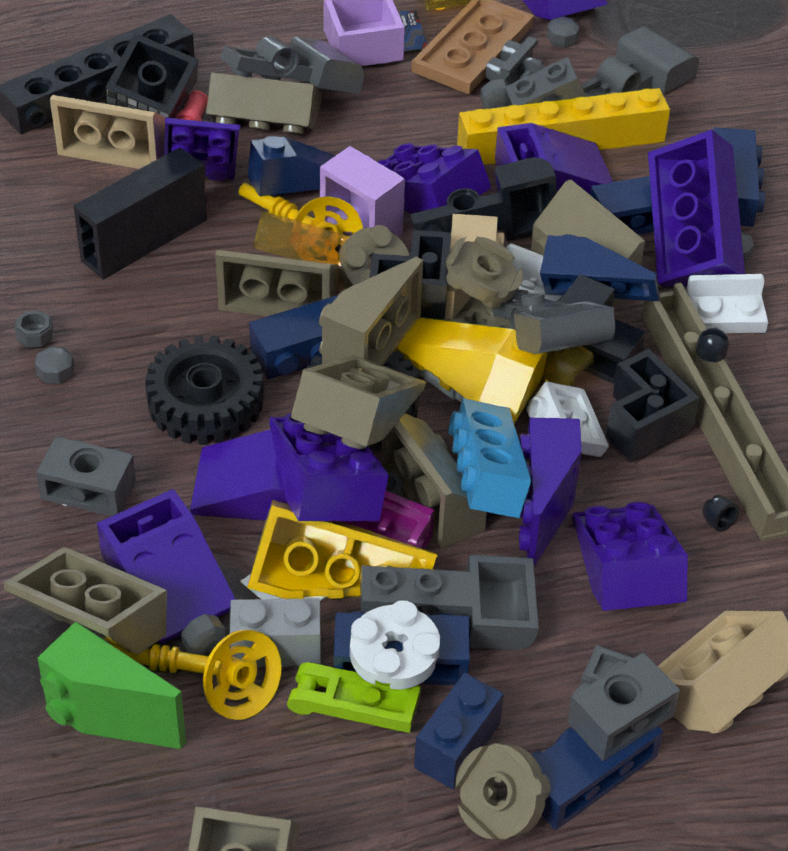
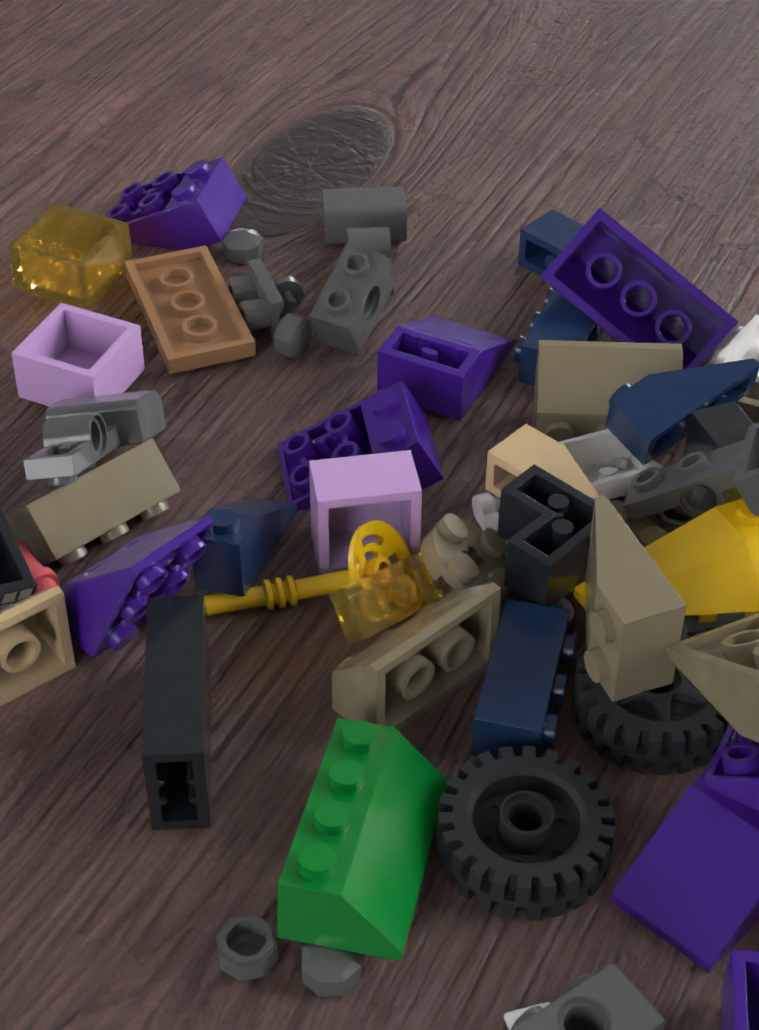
camera: 50 degrees left, 5 degrees down
(124, 323) = (361, 844): none -> green slope
(489, 286) = (619, 476): dark tan plate -> none
(520, 199) = (494, 409): black plate -> none
(606, 119) = (415, 291): yellow brick -> none

